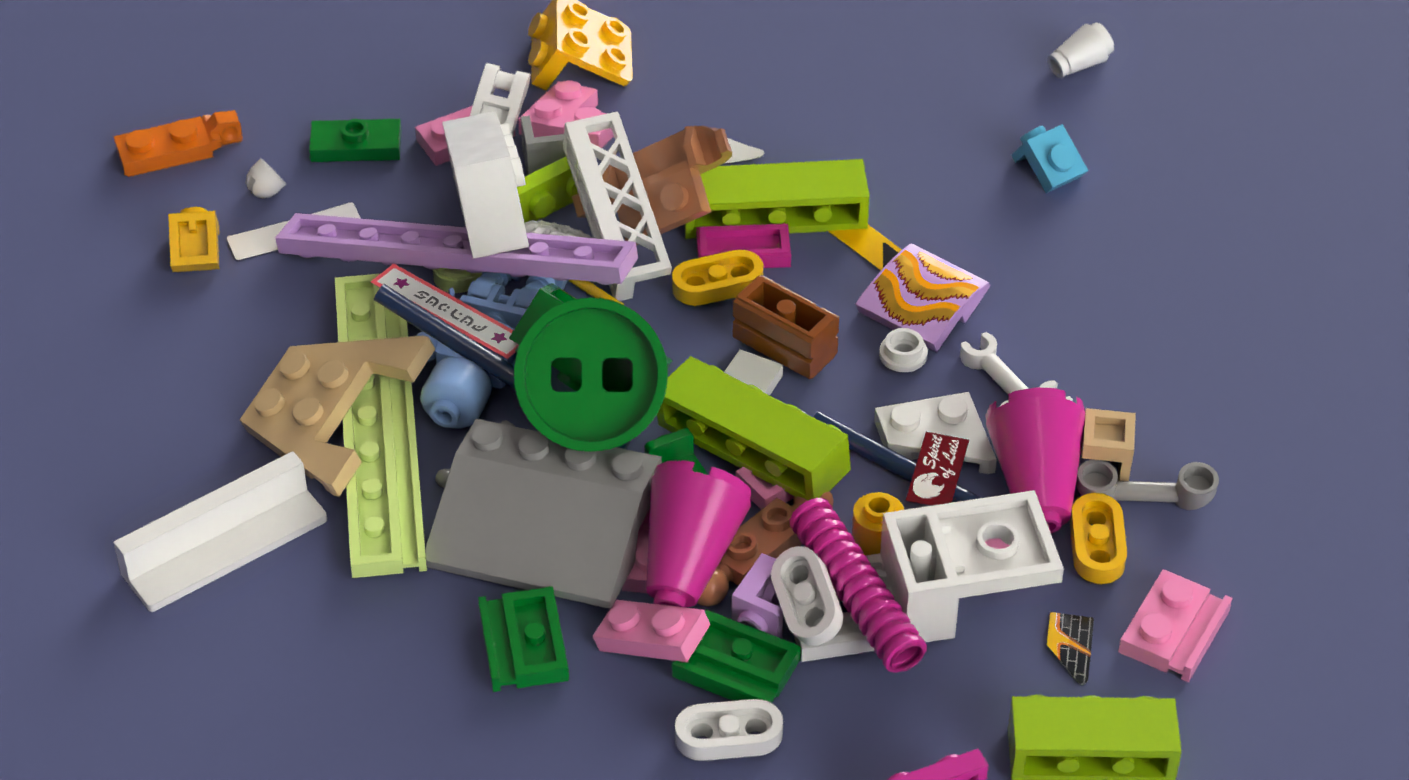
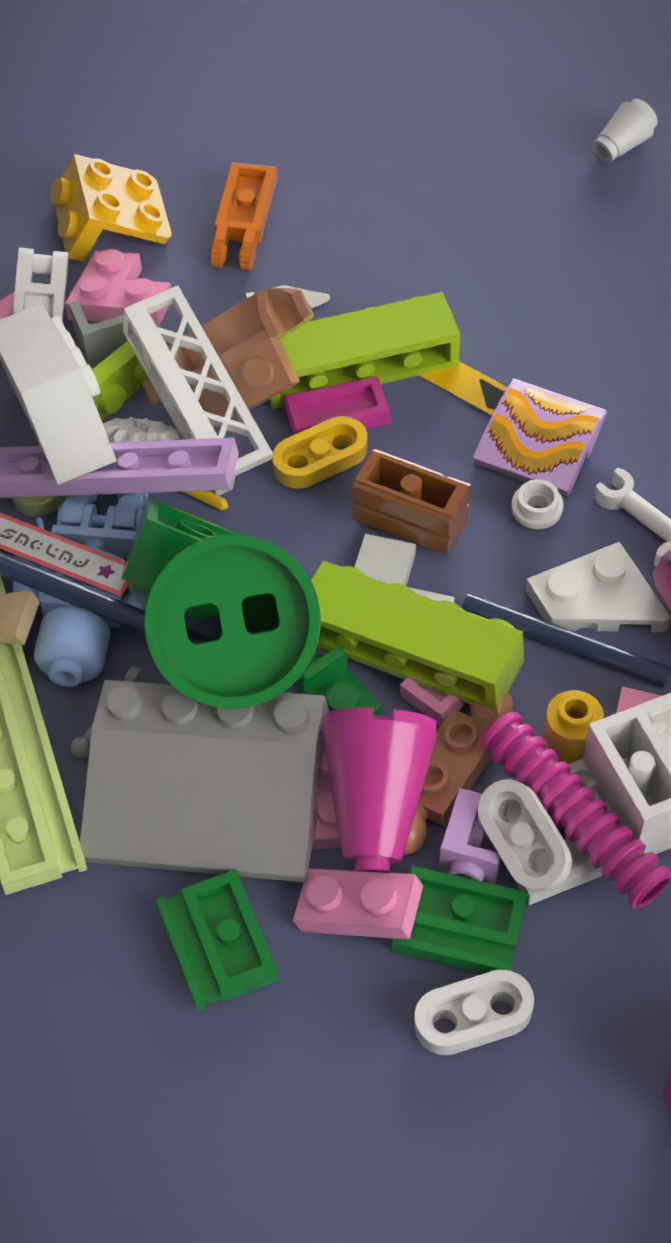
camera: 10 degrees left, 10 degrees up
(702, 69) = (243, 212): none -> orange hinge
(937, 469) = (613, 642): dark red sticker -> none
(1051, 156) = (628, 254): medium azure bracket -> none

